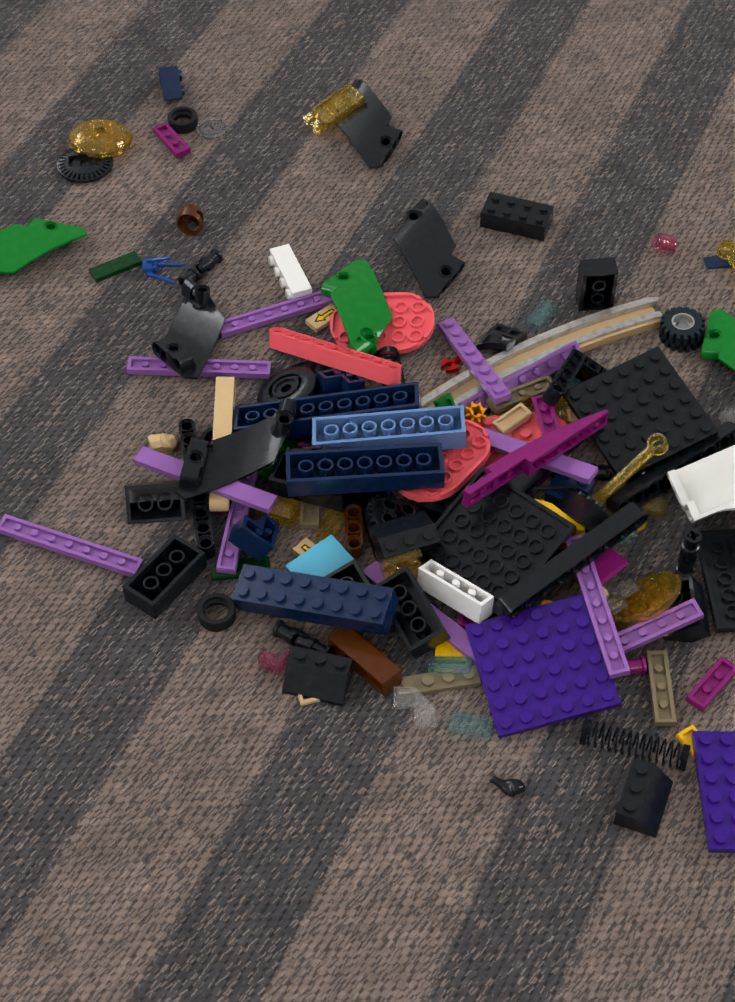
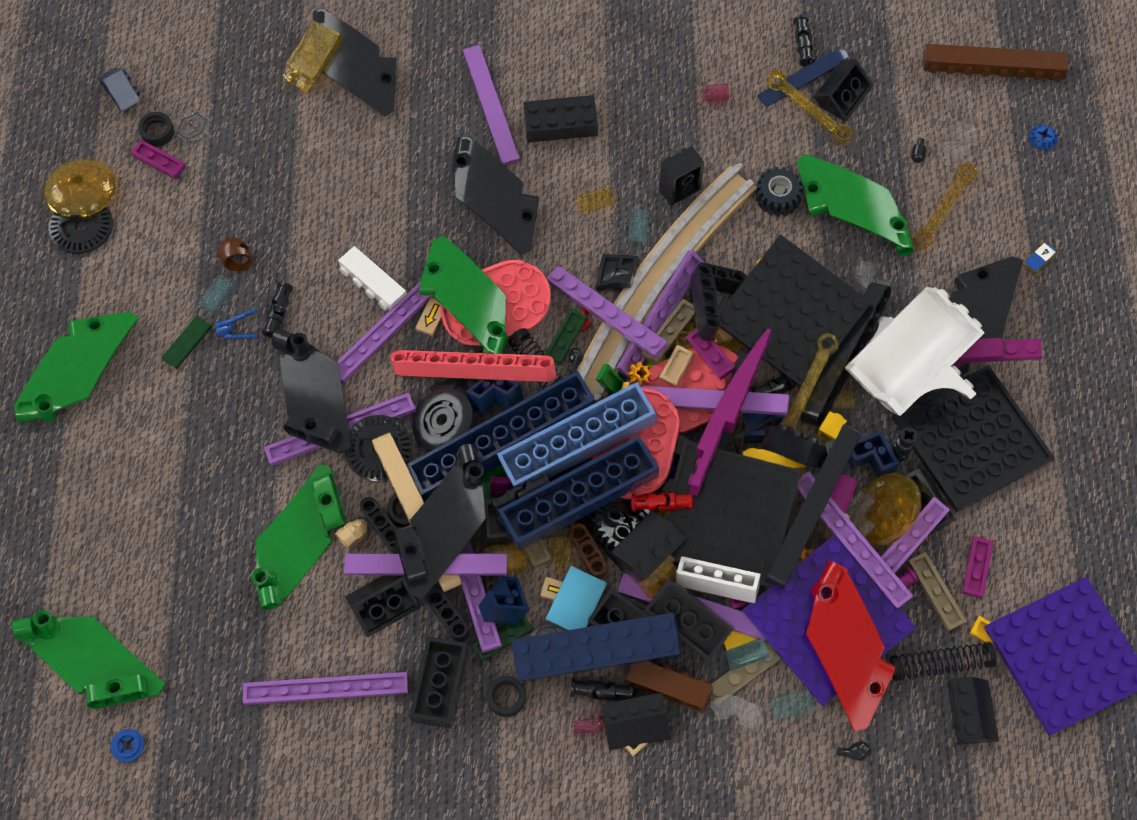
camera: 25 degrees left, 15 degrees up
(113, 432) = (297, 538): none -> green panel
(159, 243) = (216, 294): none -> clear light blue tile
(204, 402) = (369, 428): none -> black piece
(428, 387) = (575, 359): none -> black animal
(431, 368) = (566, 336): none -> dark green tile
(436, 508) = (660, 502): none -> red piece
(463, 191) = (491, 105): none -> medium lavender tile
(514, 284) = (595, 200): none -> clear yellow tile
(545, 689) = (848, 645): none -> red panel
(655, 549) = (877, 452): none -> dark blue brick

